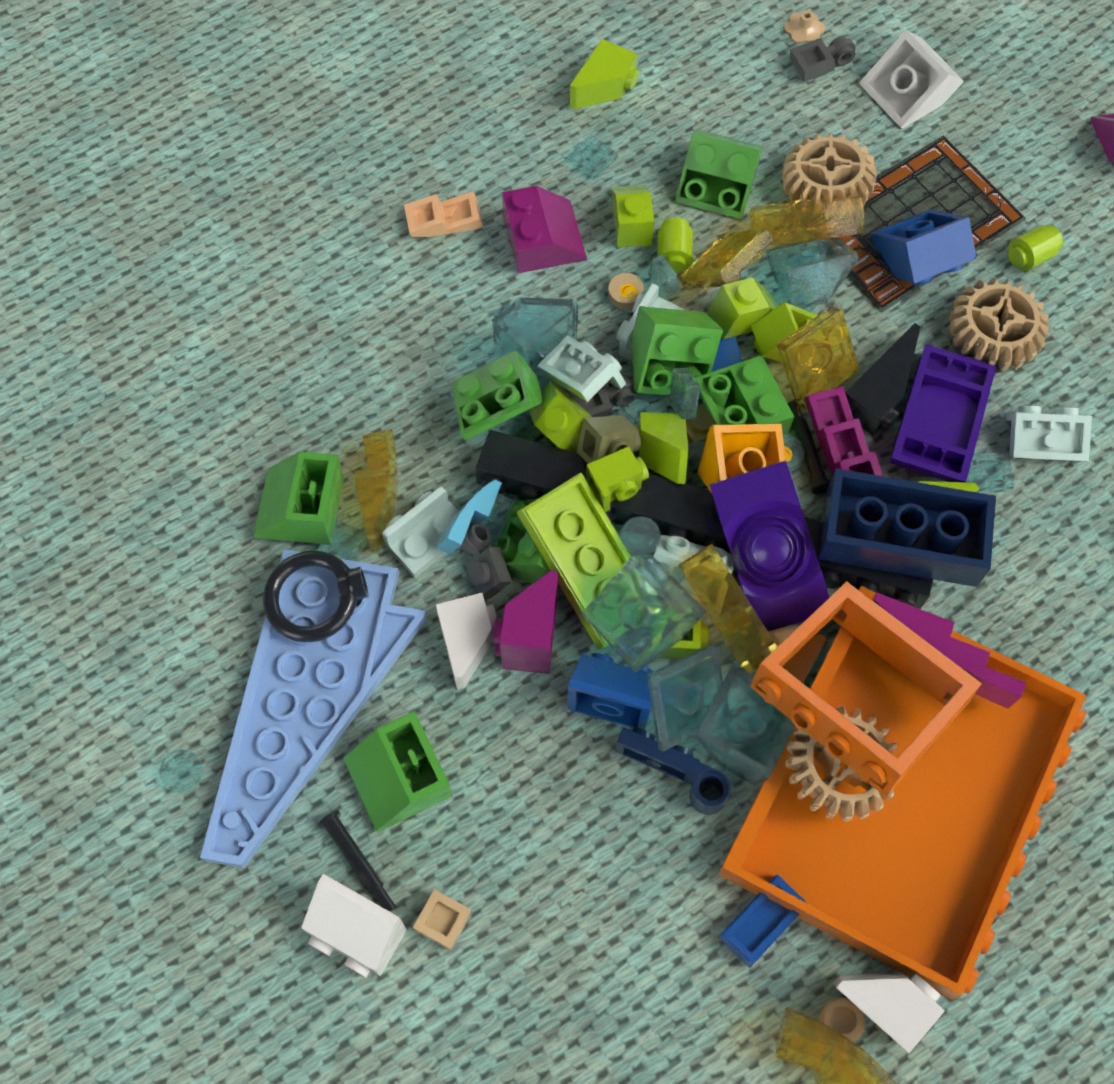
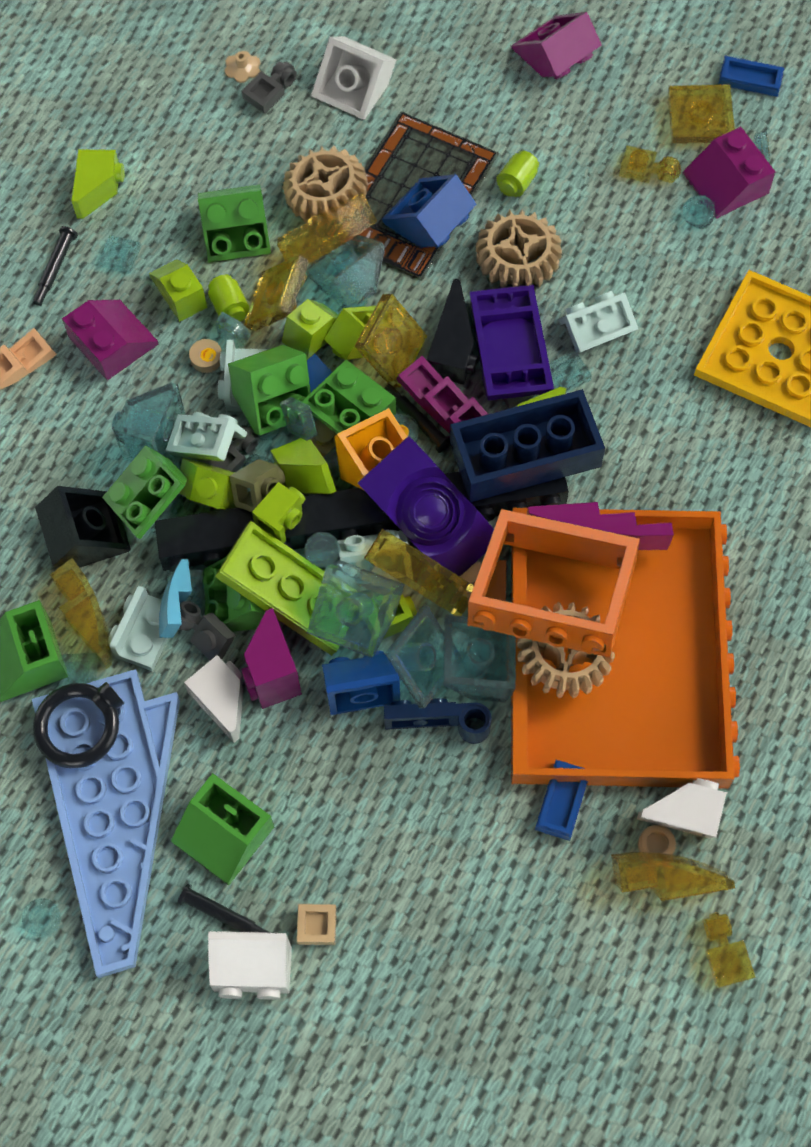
camera: 25 degrees left, 0 degrees up
(417, 403) = (80, 526): none -> black slope
(525, 139) = (54, 263): none -> black piece

